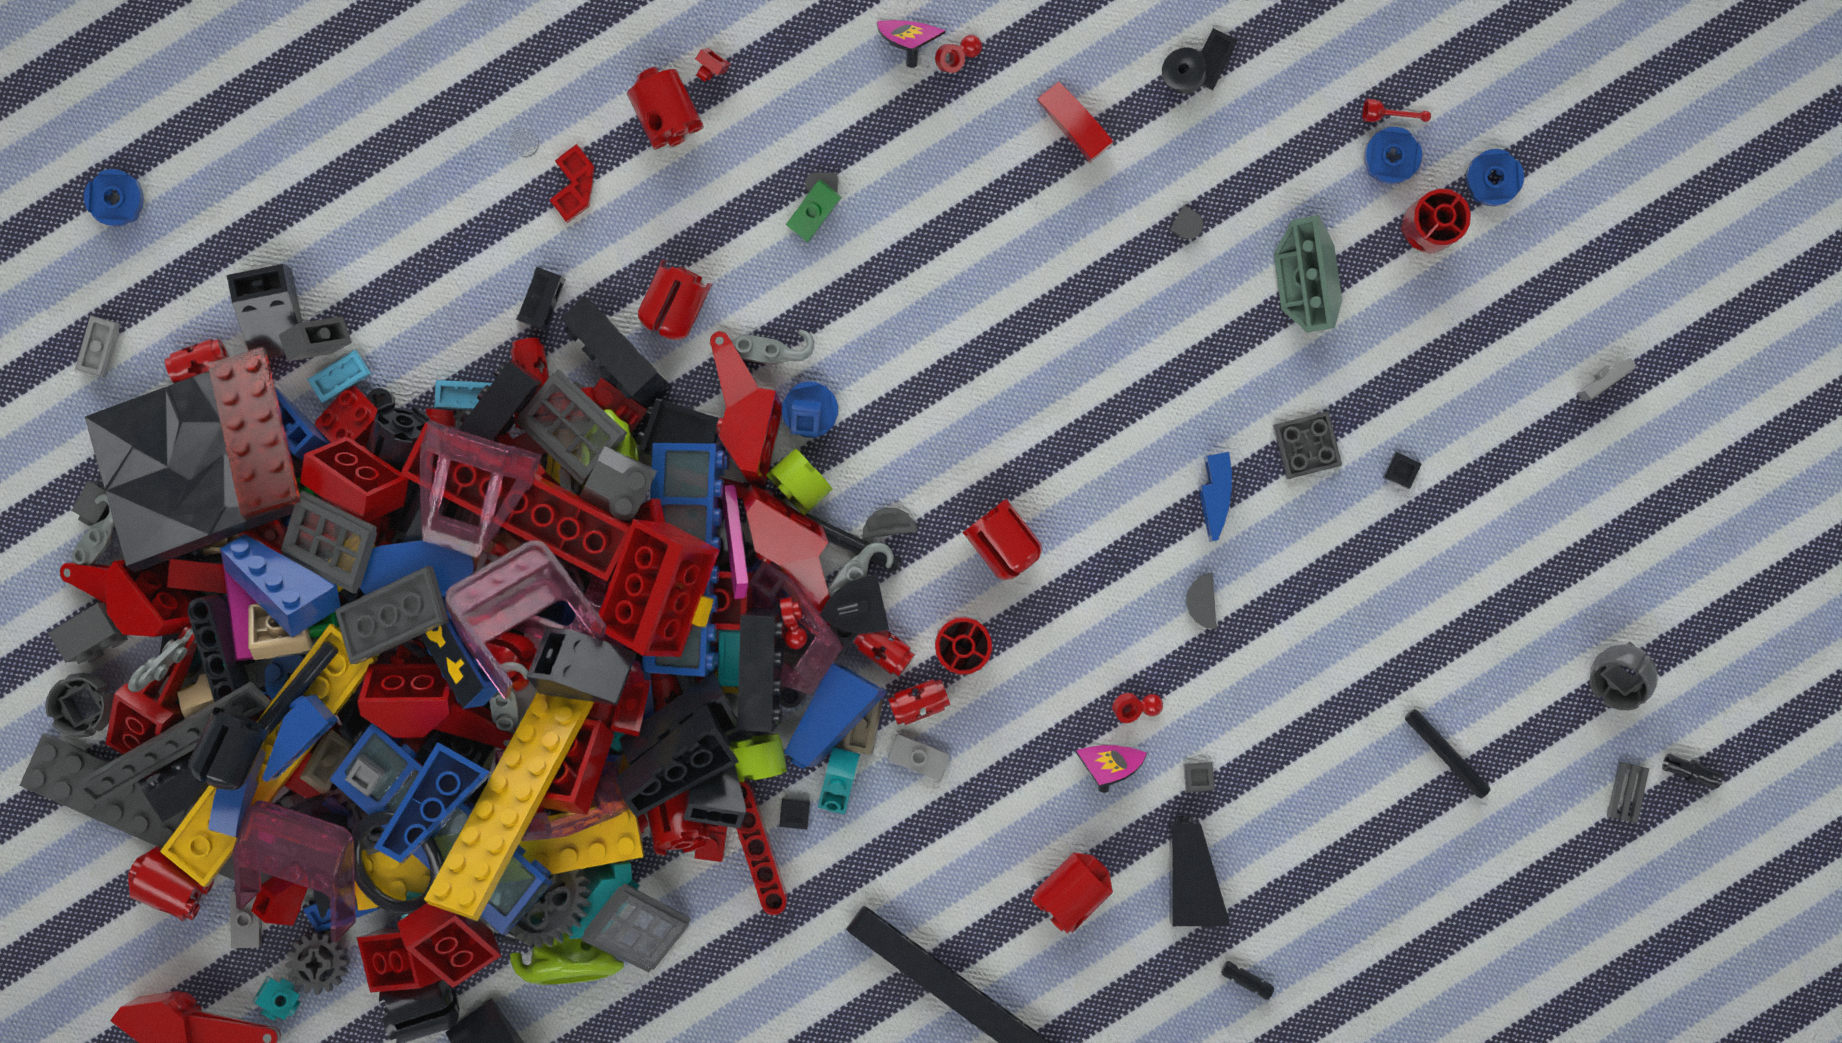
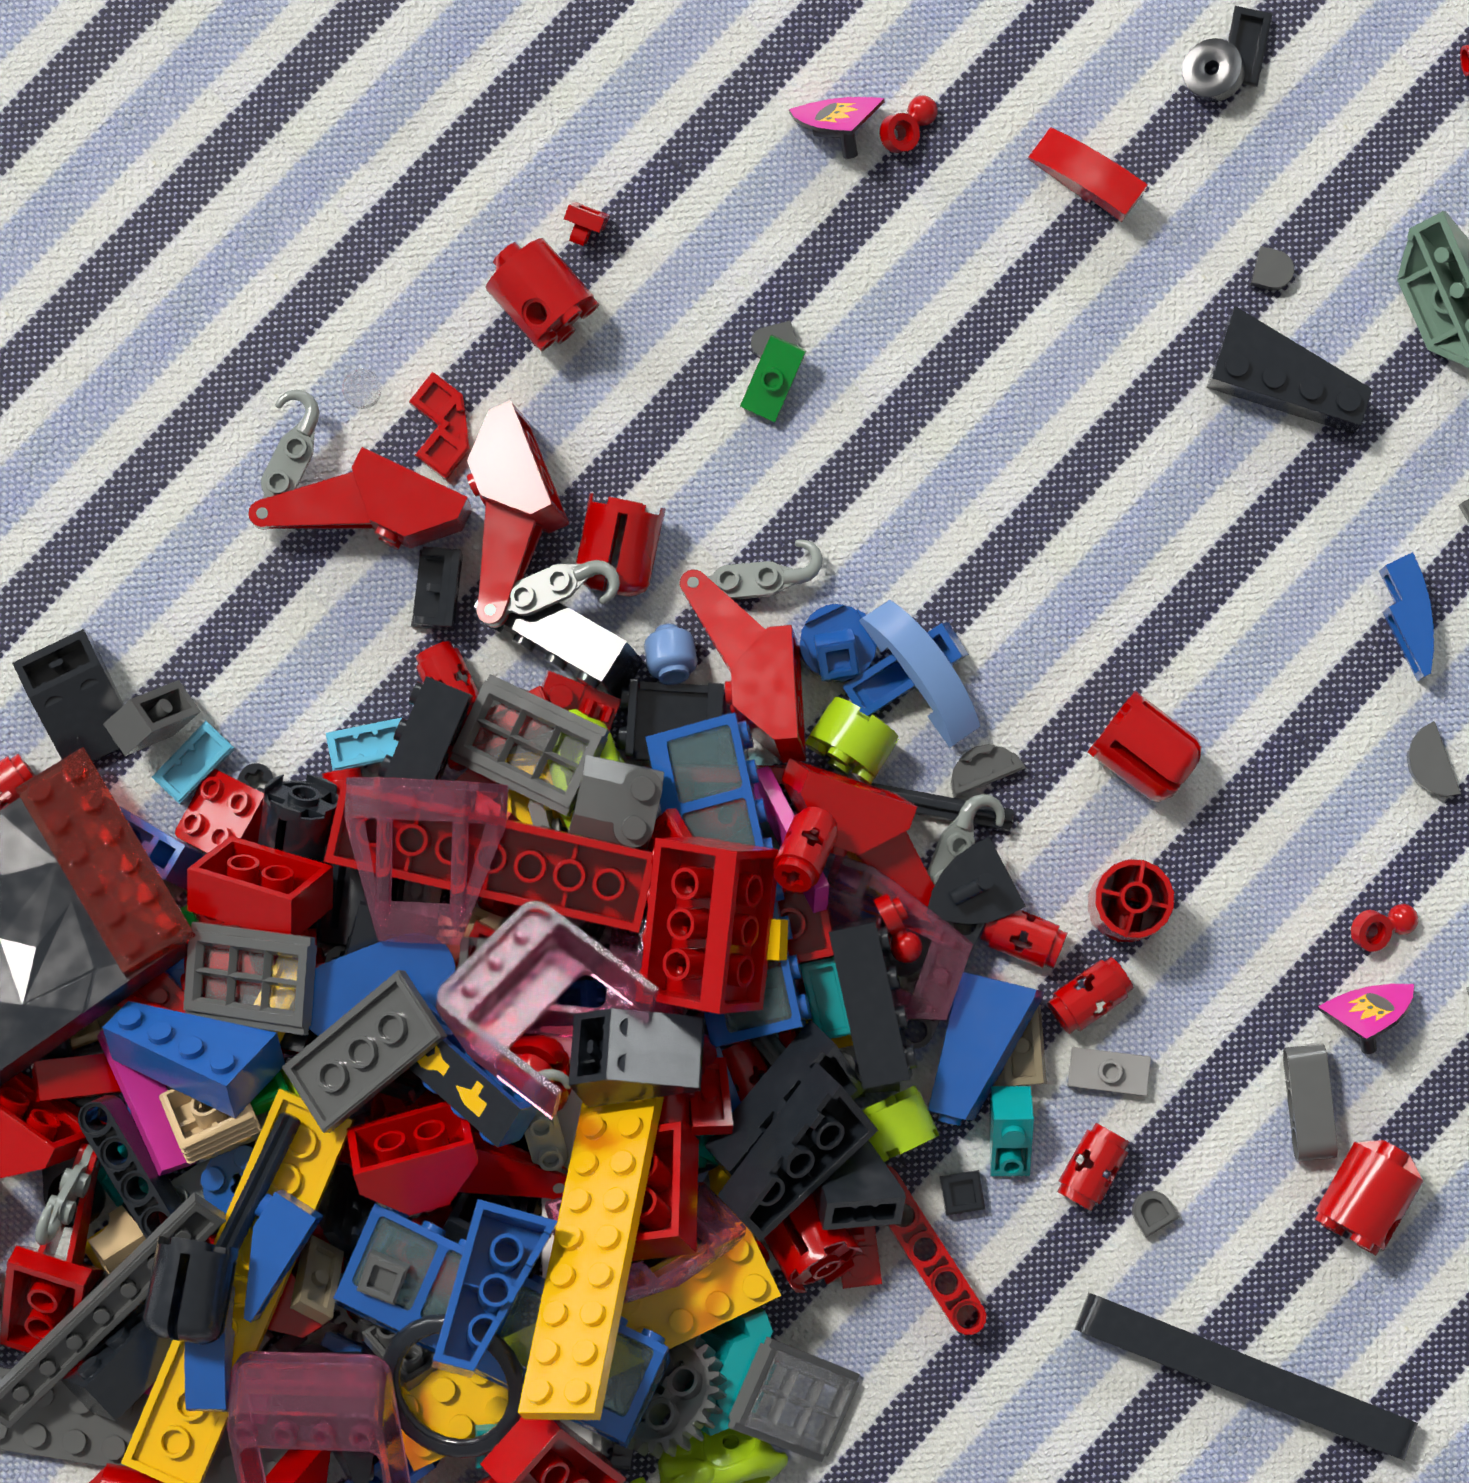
camera: 20 degrees left, 5 degrees down
(506, 221) = (374, 496): none -> red slope
(612, 251) = (519, 506): none -> slope
(690, 387) = (670, 654): none -> medium blue head
(737, 554) = (805, 849): none -> red piece
(852, 440) = (889, 681): none -> blue slope
(865, 445) = (926, 667): none -> medium blue slope
(899, 813) = (1085, 1181): none -> red piece
(923, 861) = (1152, 1212): none -> dark grey tile
(1051, 815) = (1310, 1102): none -> dark grey beam
(1171, 300) = (1282, 375): none -> black wedge

